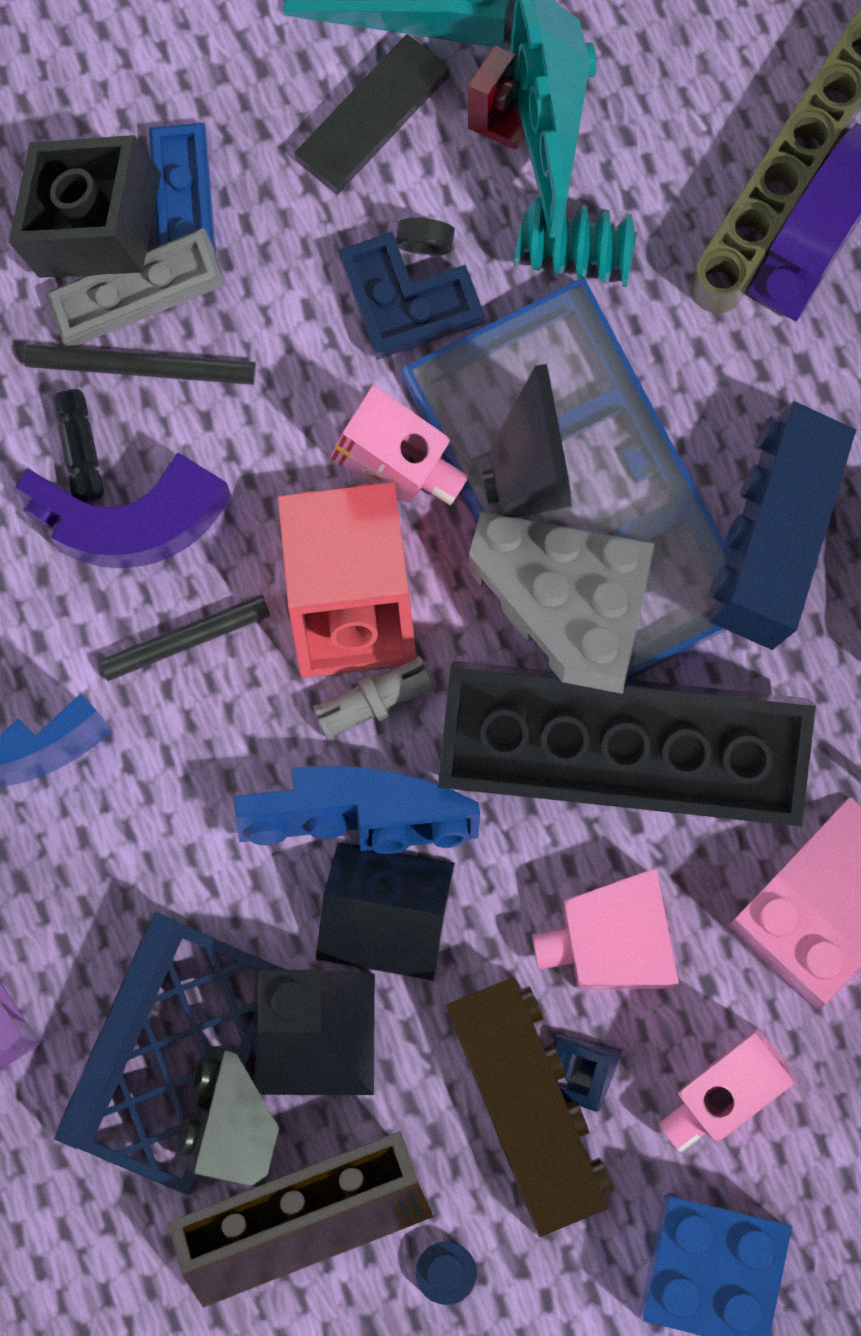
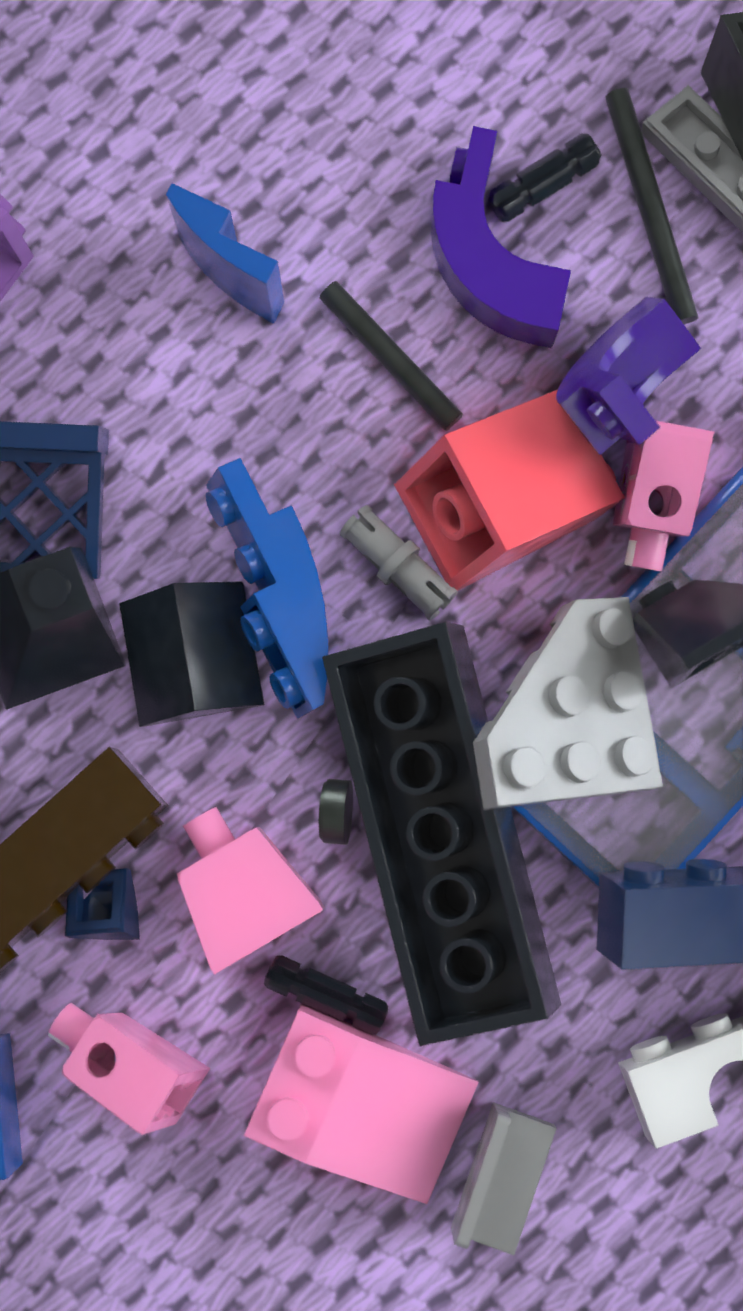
camera: 65 degrees right, 5 degrees up
(282, 443) = (621, 370): none -> dark purple arch
(573, 831) = (336, 811): none -> pearl dark grey tile
(729, 899) = (326, 994): none -> black axle

